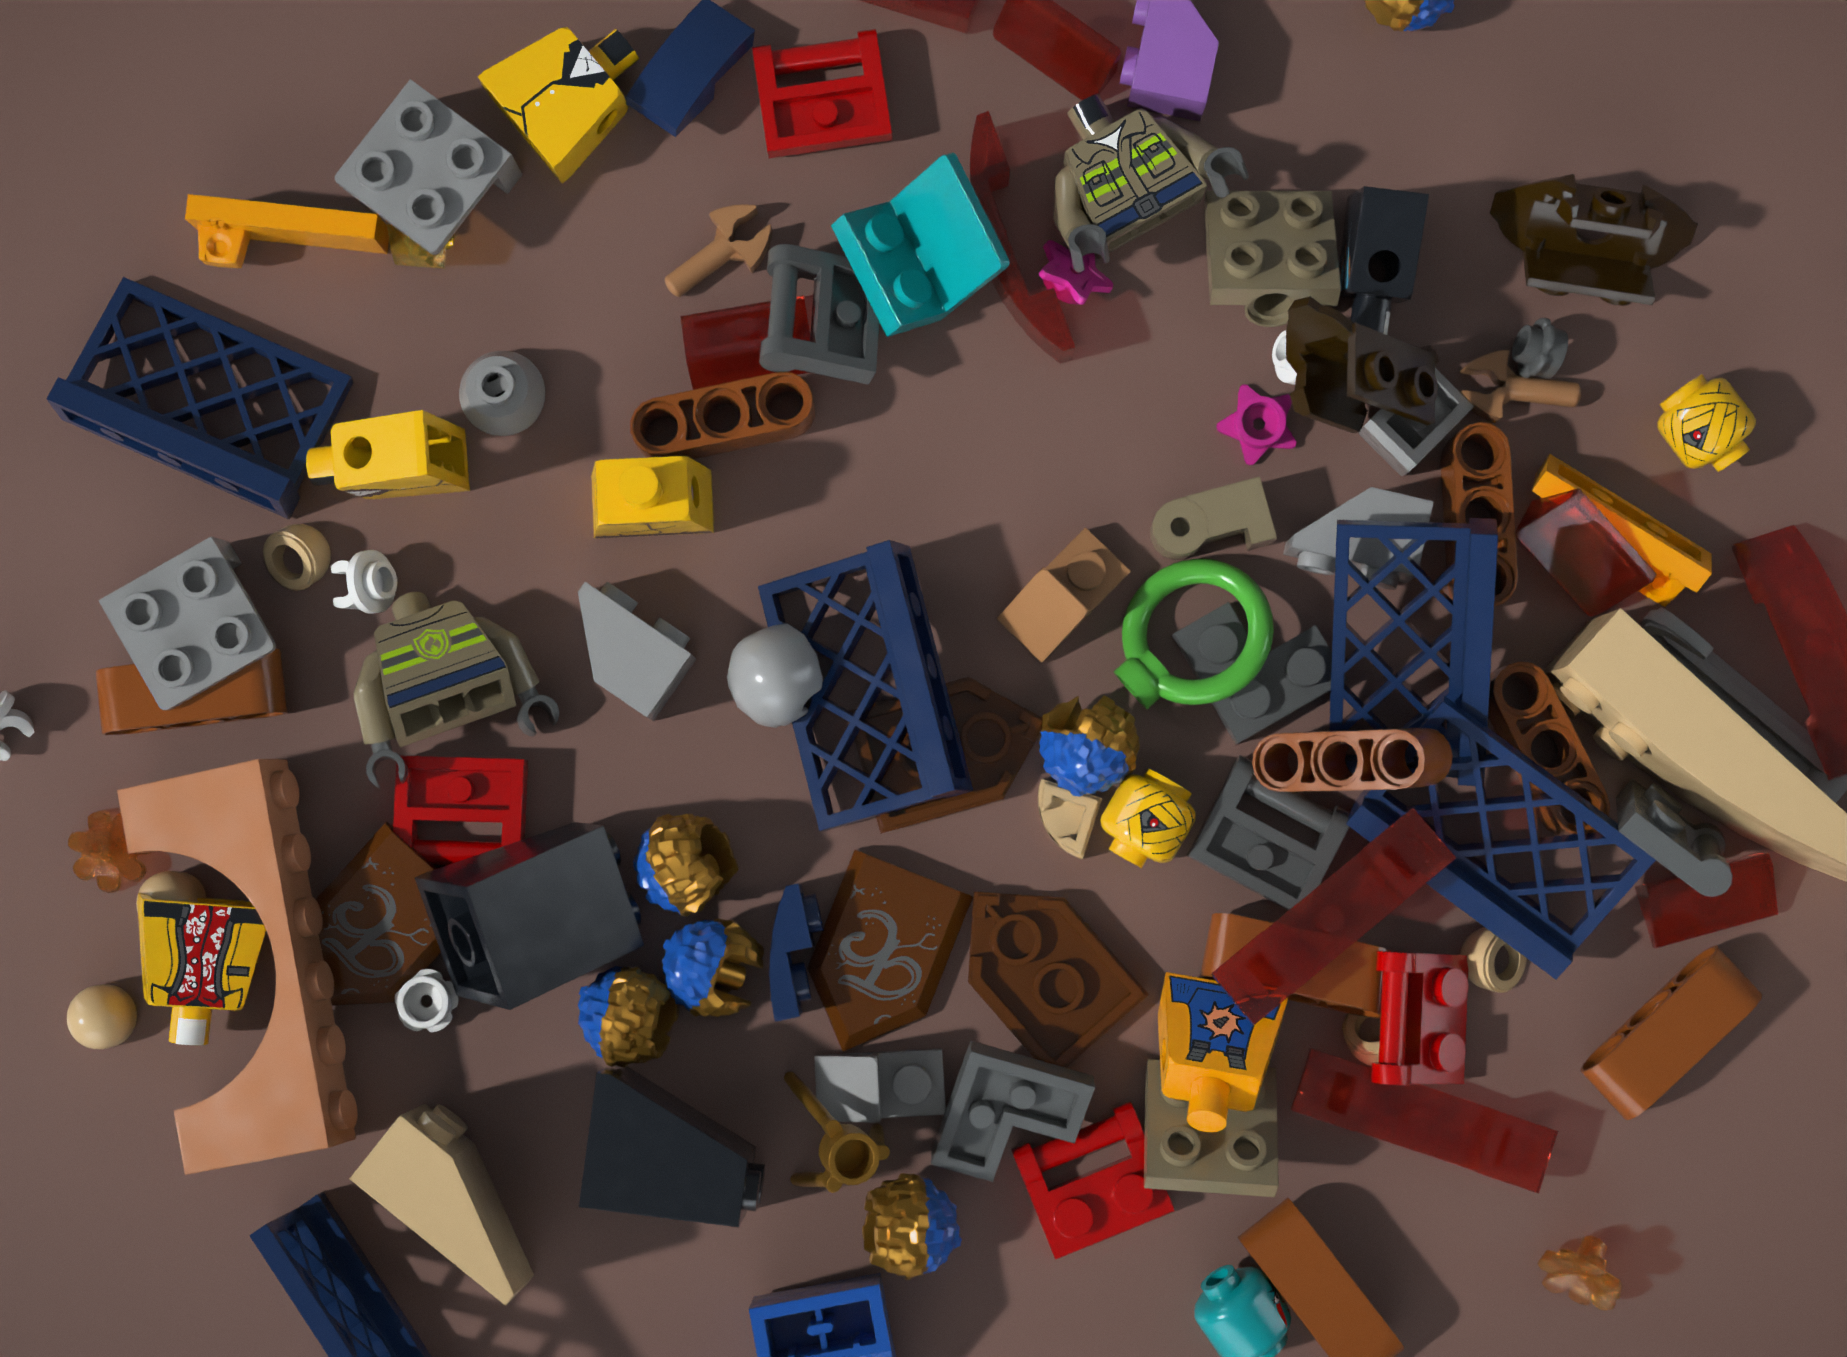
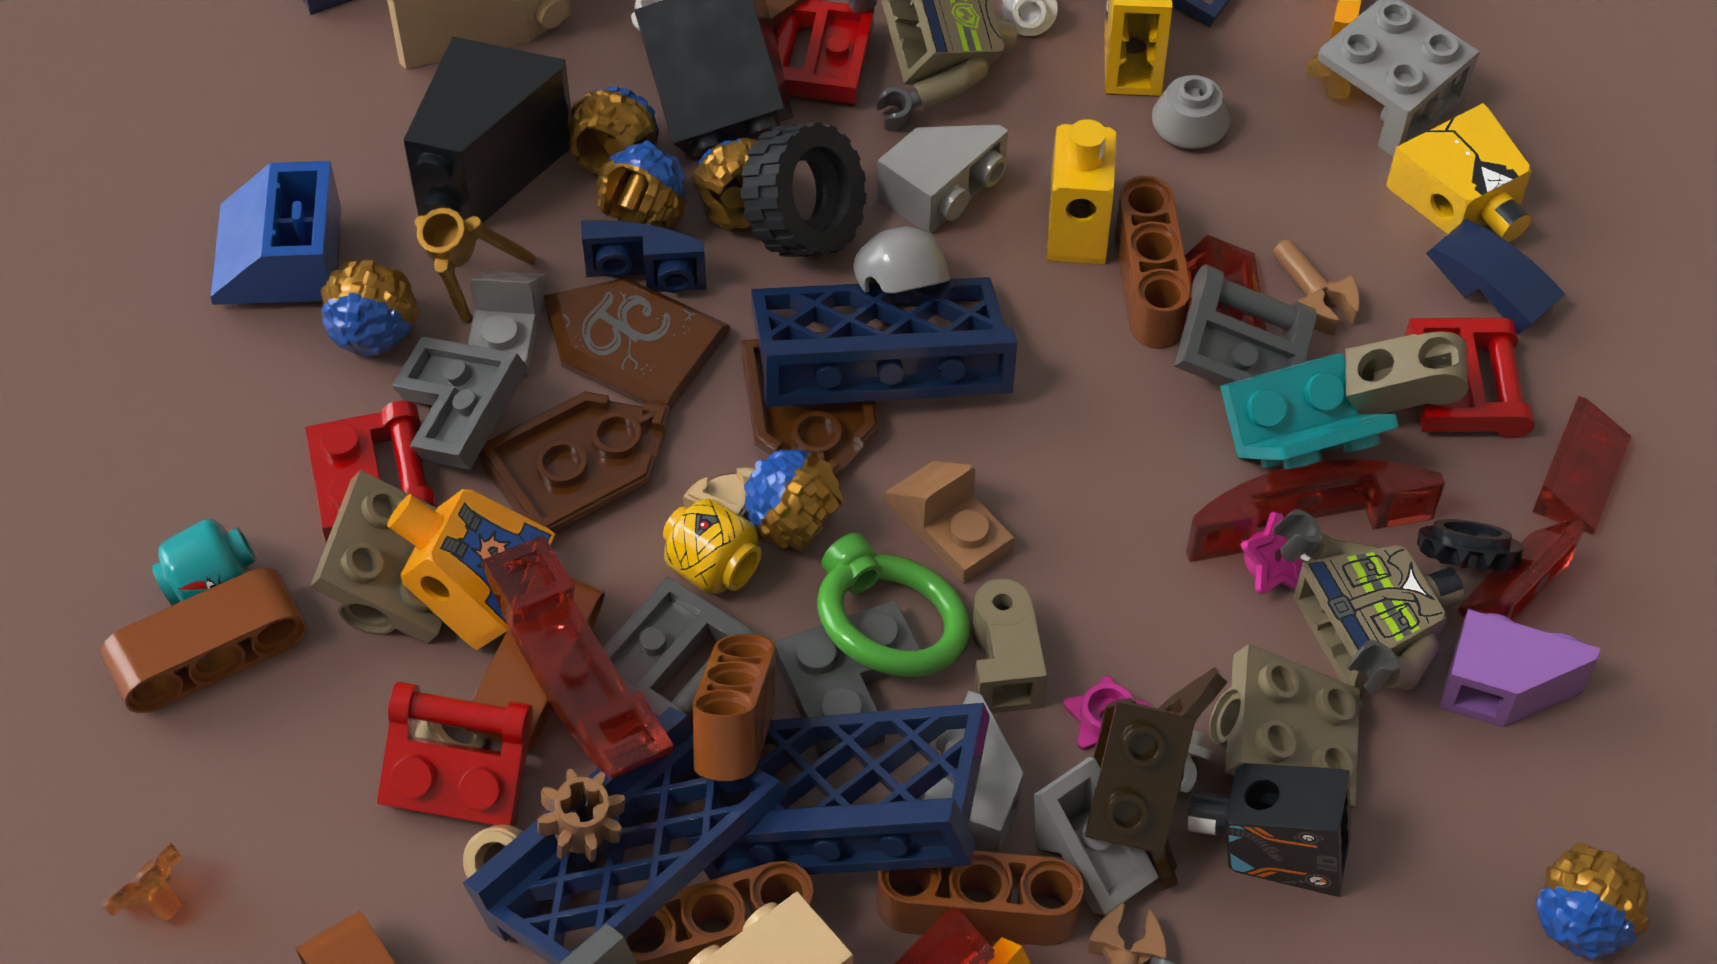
camera: 95 degrees right, 30 degrees down
(699, 817) = (769, 190): none -> black tyre
(860, 150) = (1407, 372): none -> dark tan leg
(1034, 65) = (1470, 545): none -> black gear
(1425, 1121) = (345, 772): clear red slope -> none
(1520, 872) = (594, 801): none -> medium nougat gear

